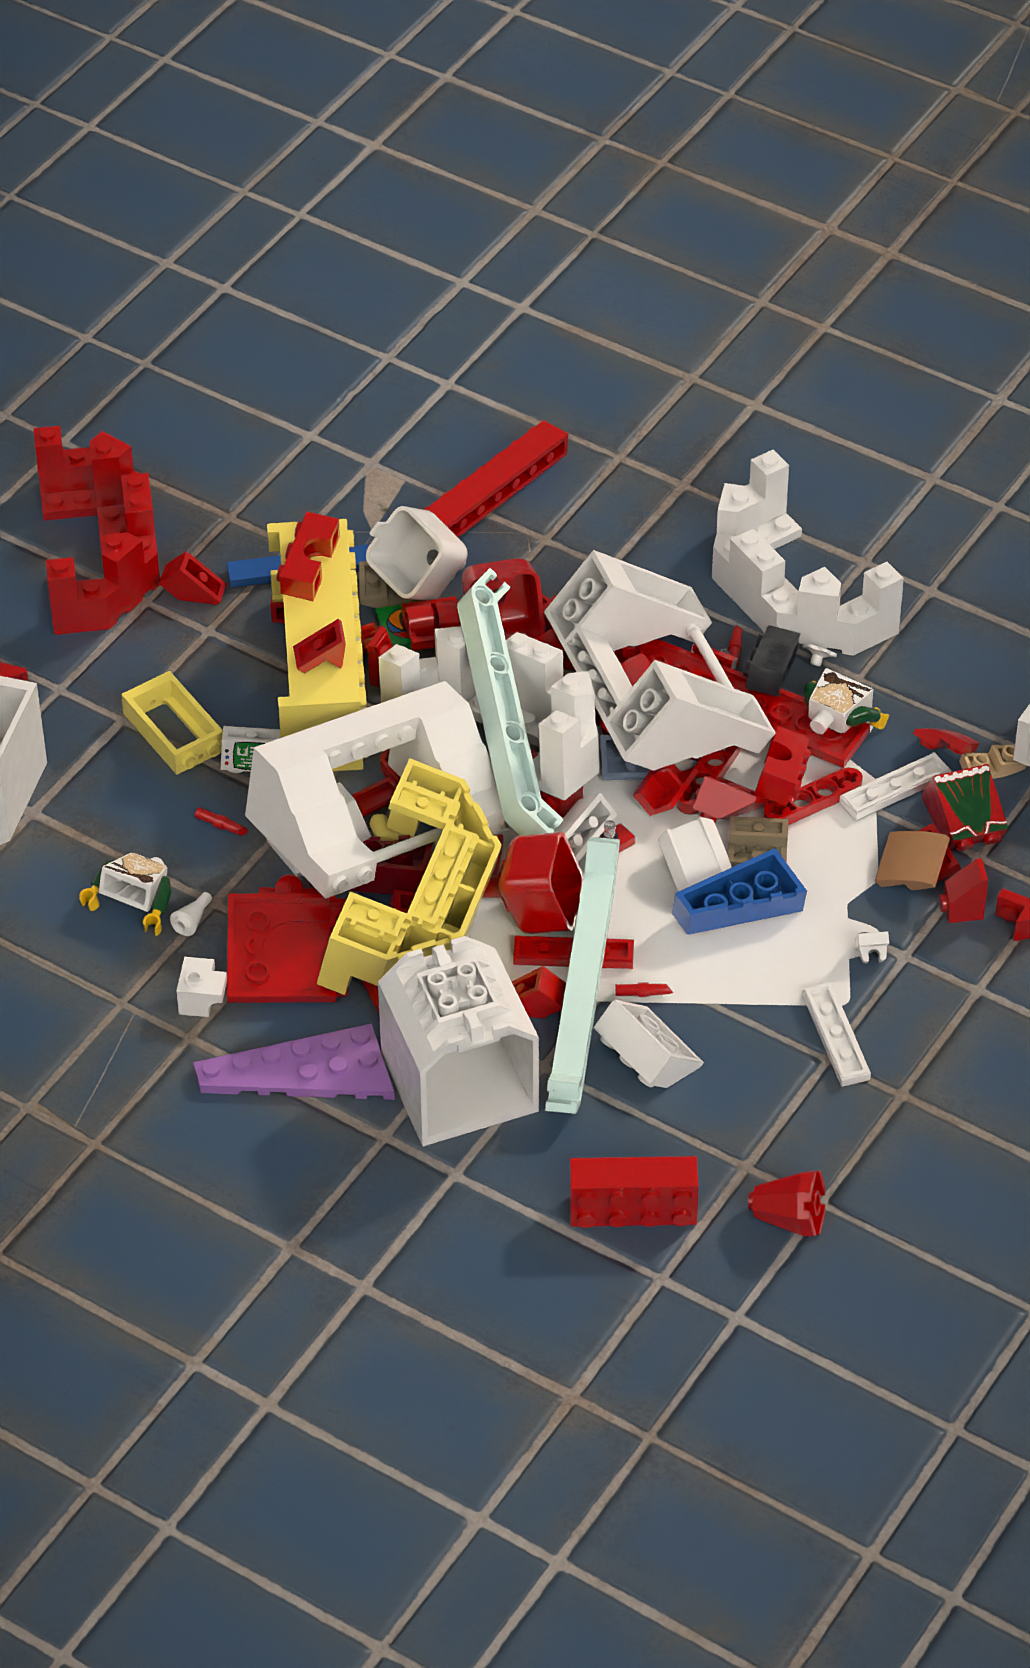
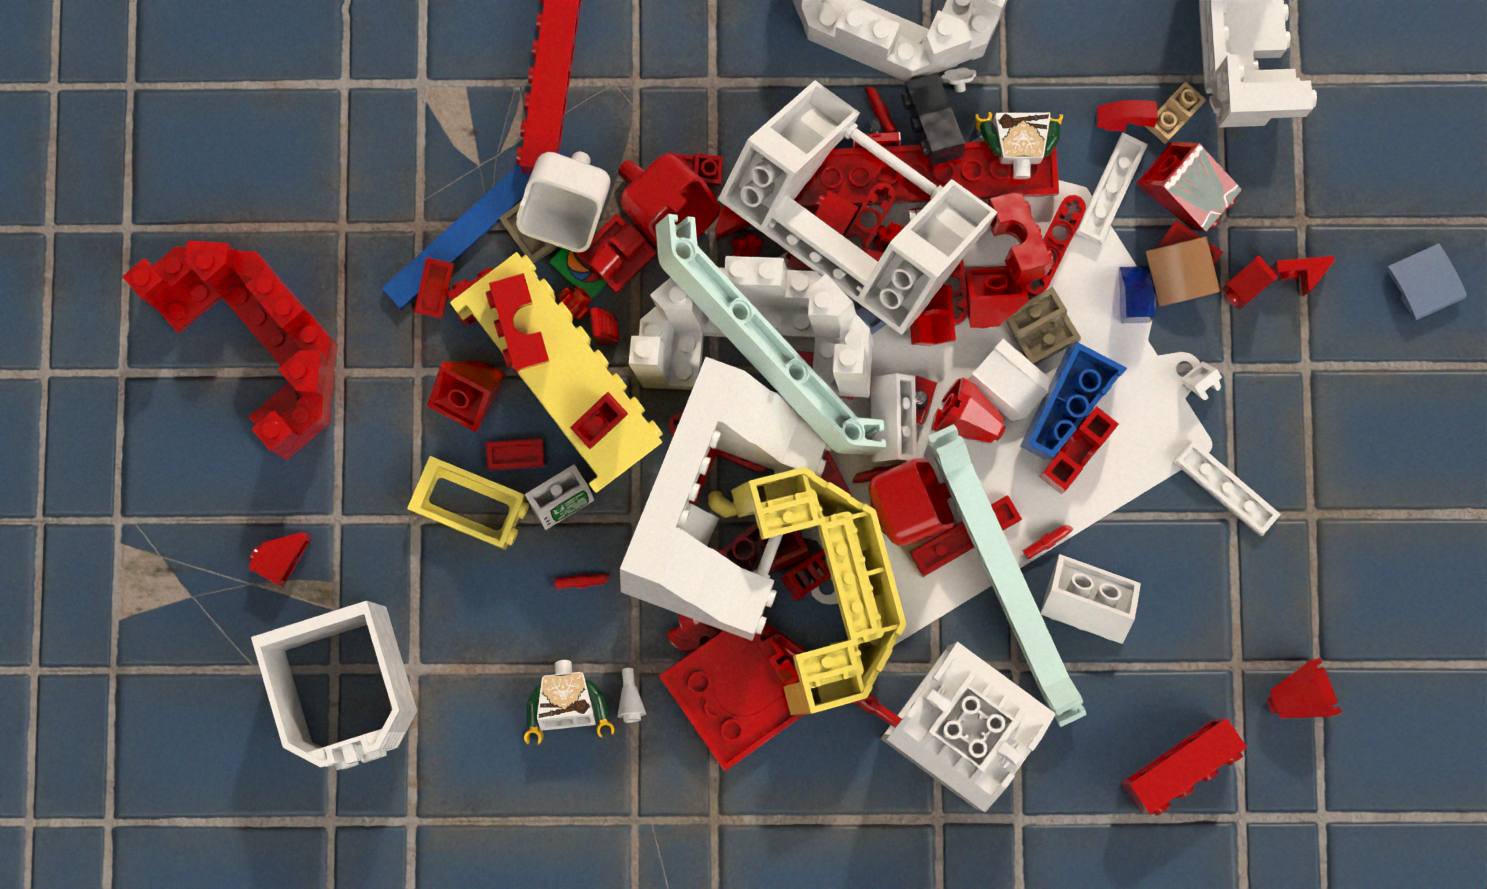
camera: 30 degrees left, 35 degrees up
(192, 581) = (369, 332): red slope -> none
(199, 986) = (697, 777): white brick -> none
(235, 652) = (465, 391): none -> red slope
(238, 713) = (515, 454): none -> red tile
(258, 584) = (433, 287): none -> red tile
(306, 1067) = (840, 785): medium lavender wing -> none
(540, 992) = (967, 609): red slope -> none
(644, 861) = (970, 413): none -> red cone
(741, 930) = (1078, 450): none -> red arch
(855, 863) = (1136, 295): none -> clear blue slope

